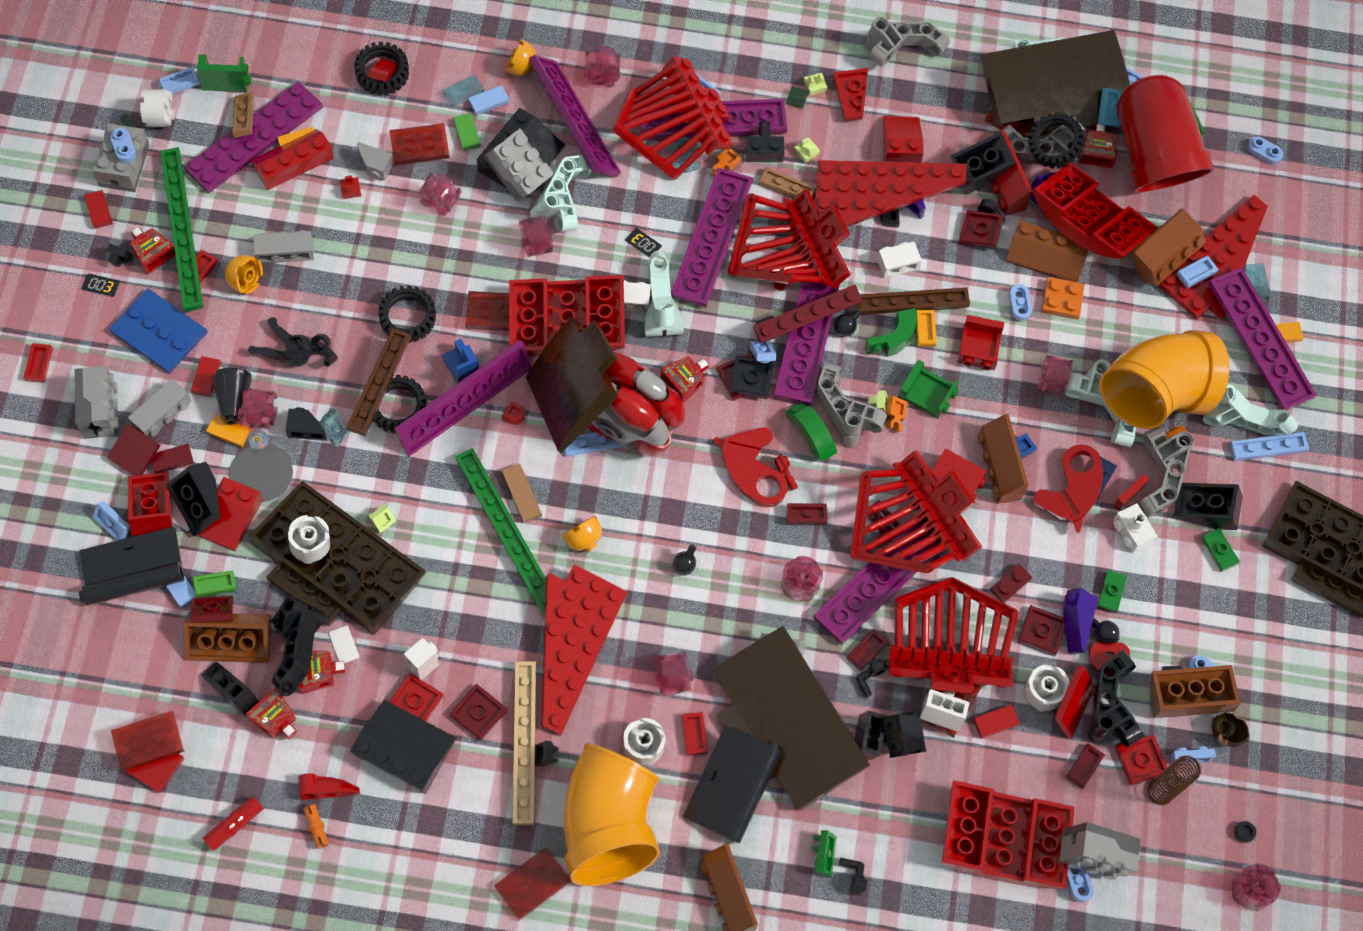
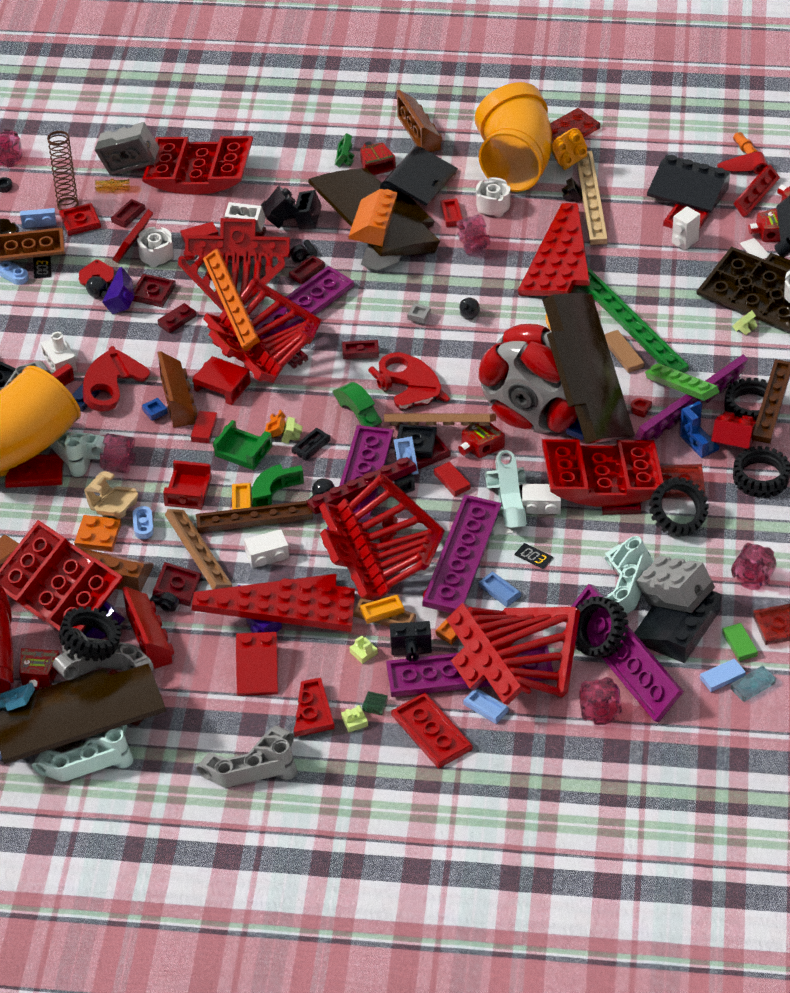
camera: 175 degrees left, 20 degrees down
(320, 736) = (756, 190): none -> red plate
(425, 351) = (733, 430): none -> red brick
(470, 407) = (682, 382): none -> bright green plate
(478, 712) = (632, 215): dark red tile -> none
(501, 274) = (697, 498): none -> black tyre
(520, 59) = (693, 708): light orange cylinder -> none
(536, 236) = (647, 528): clear pink brick -> none
(545, 797) = (569, 148): none -> light orange piece
(584, 120) = (617, 627): none -> black tyre
(679, 205) = (499, 589): none -> medium blue tile
(716, 335) = (452, 479): none -> red tile
(726, 391) = (447, 418): none -> medium nougat plate
(740, 563) = (419, 313): none -> light grey plate
(749, 69) = (431, 730): none -> red tile
(785, 834) = (377, 158): none -> red torso
(789, 182) = (382, 609): none -> light orange tile
(792, 677) = (373, 217): none -> orange slope
(799, 589) = (365, 300): clear pink brick -> none
(852, 415) = (322, 412): light grey connector -> none
(859, 882) = (317, 138): black plate -> none
(868, 381) = (313, 444): none -> black tile
(954, 561) = (231, 300): none -> orange tile
(964, 264) = (198, 549): none -> medium nougat plate
(969, 423) = (204, 427): none -> red tile
(984, 161) = (174, 626): black slope -> none
(1054, 324) = (111, 500): none -> tan piece
(1110, 816) = (112, 185): none -> clear yellow pin
(1111, 591) = (86, 318): green plate -> none
(1113, 717) = (105, 229): black connector -> none

